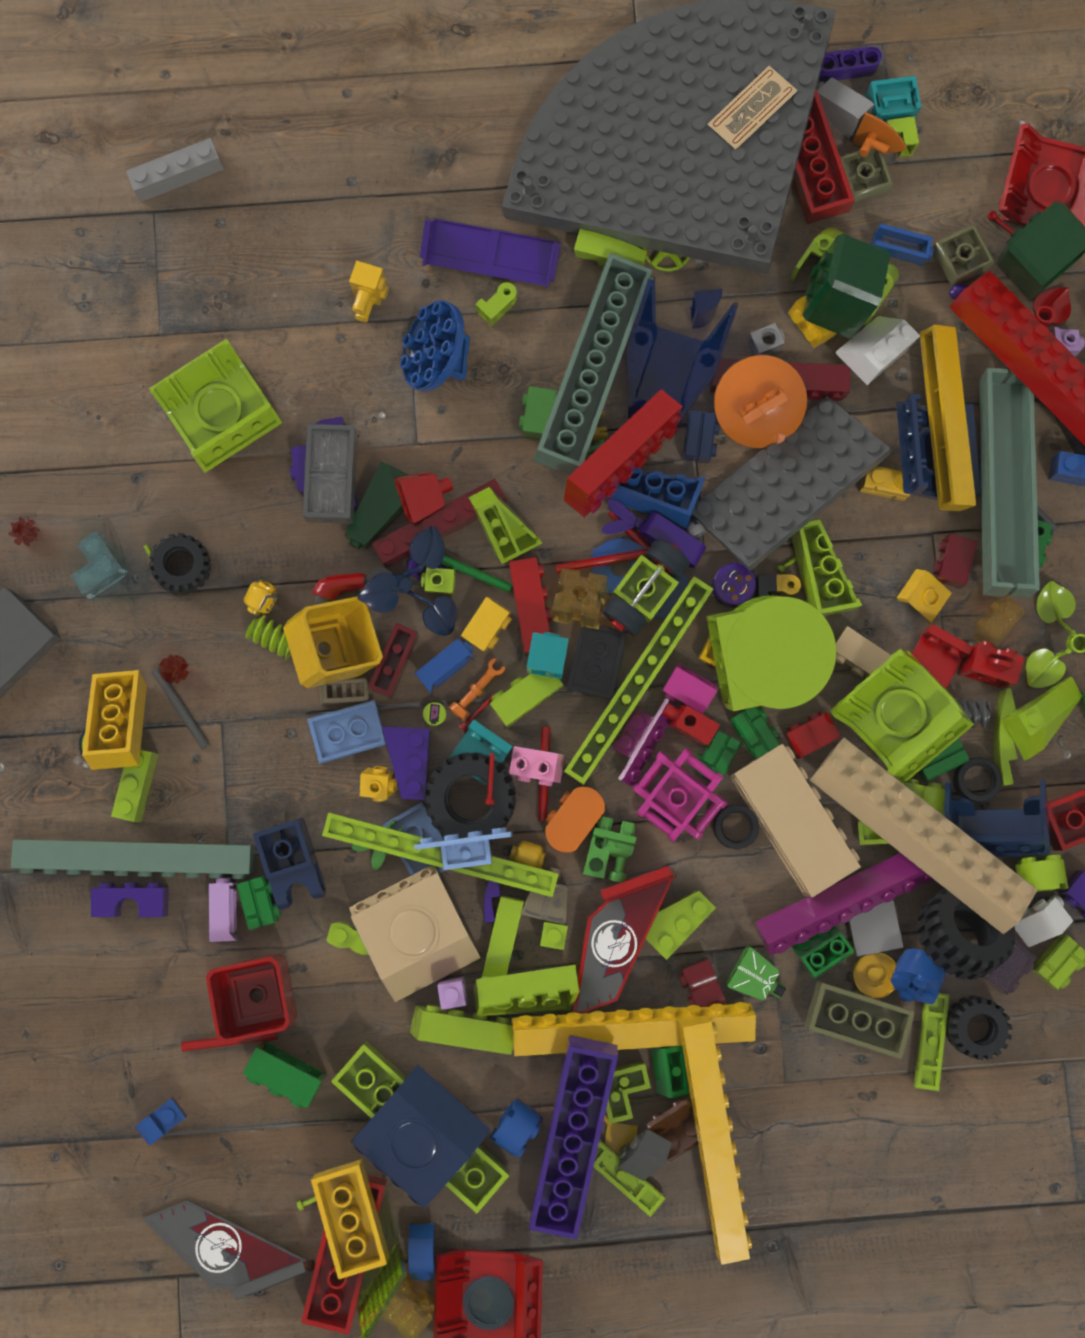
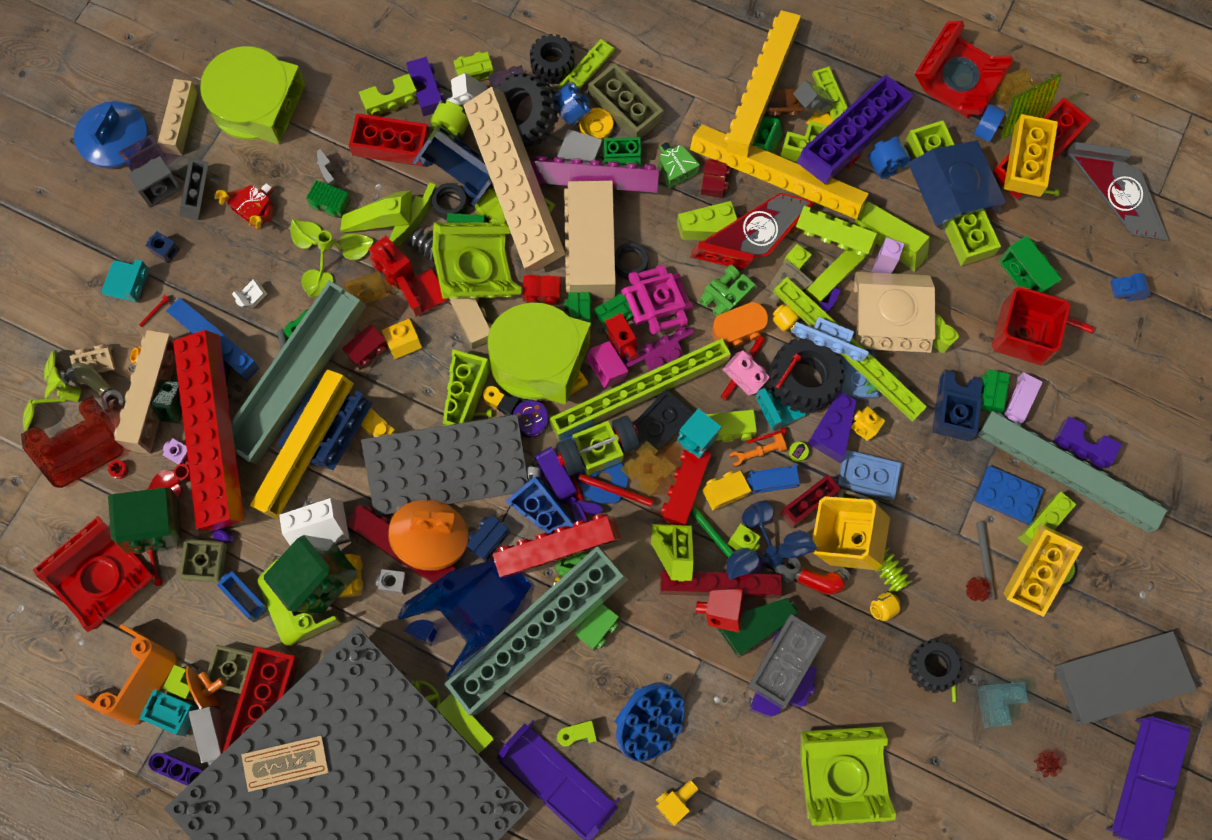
camera: 150 degrees left, 10 degrees down
(189, 794) = (1008, 495): none -> blue plate
(938, 137) = (148, 675): none -> orange windscreen

